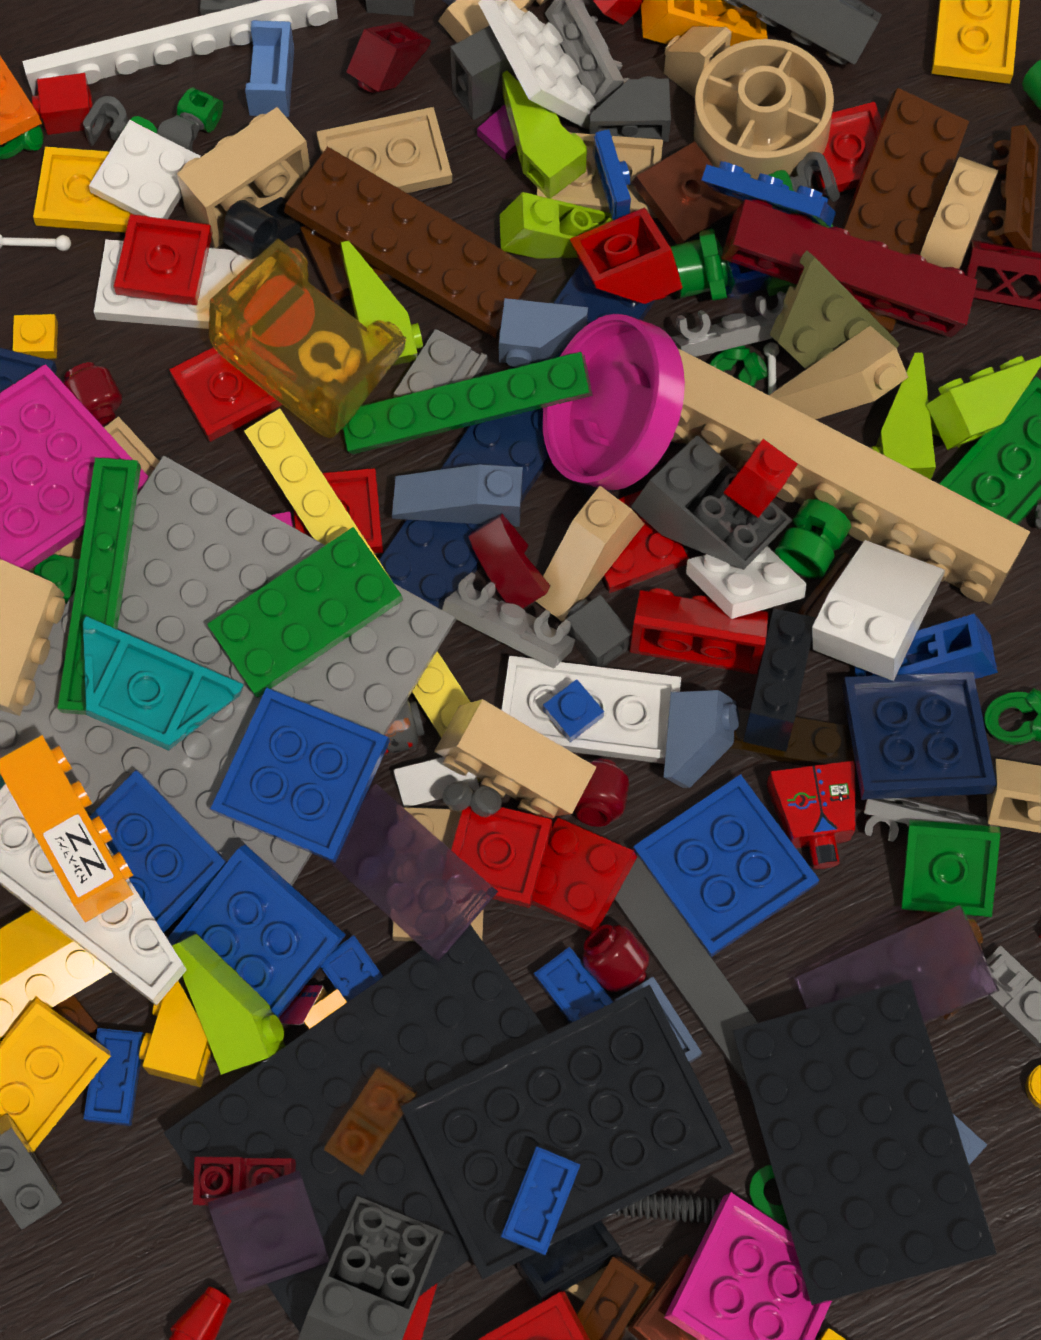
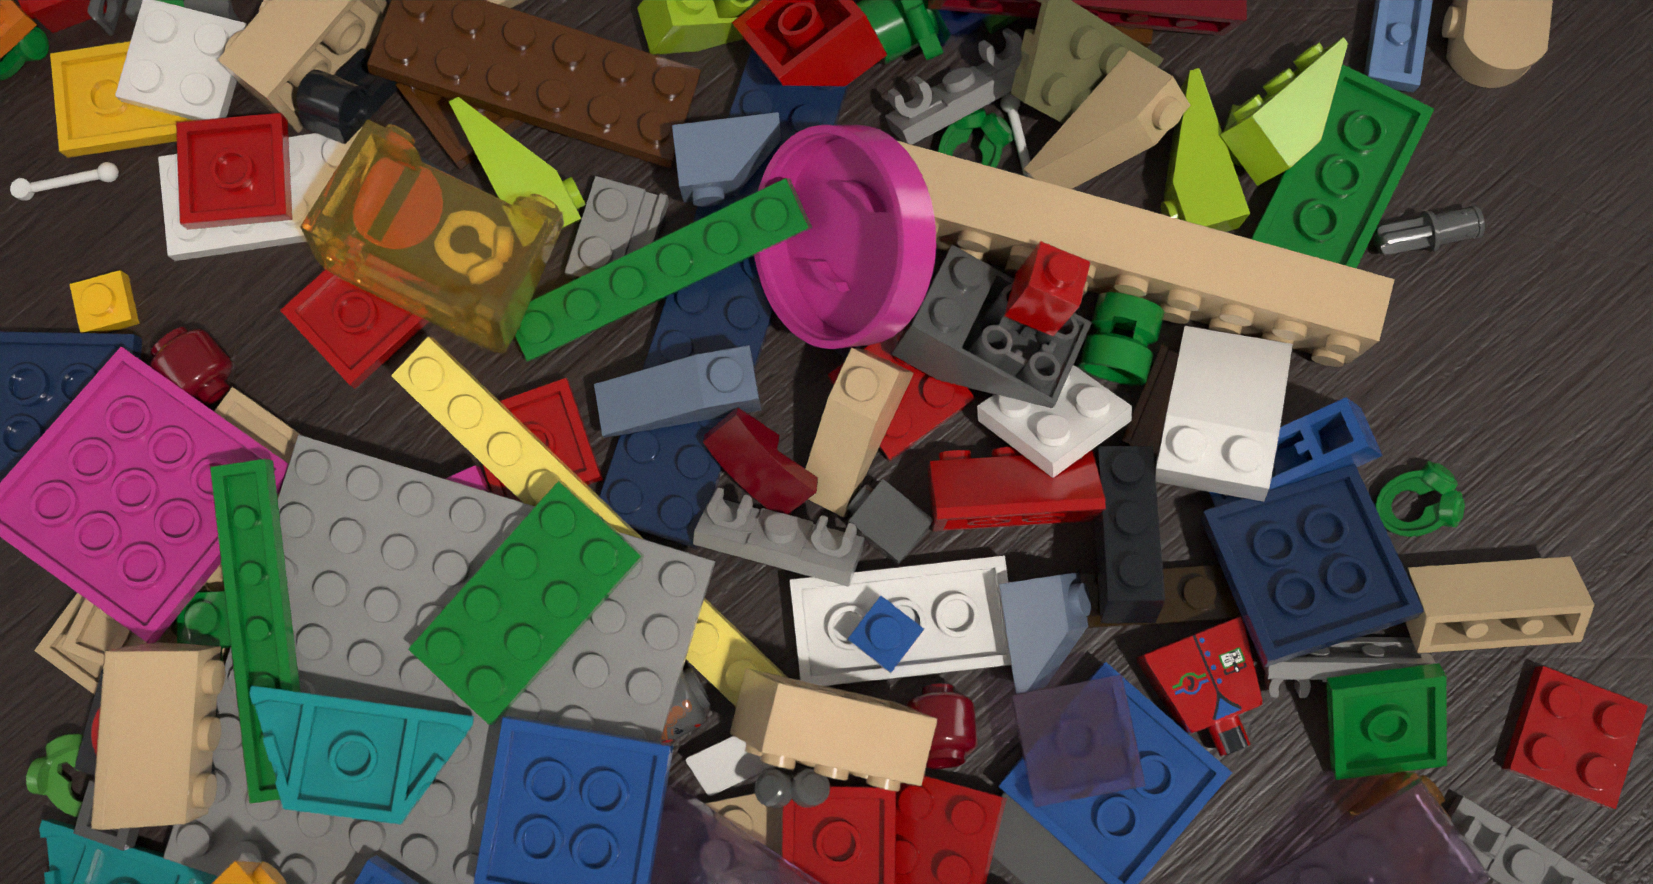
camera: 10 degrees left, 10 degrees up
(702, 821) = (1077, 741): none -> clear purple plate

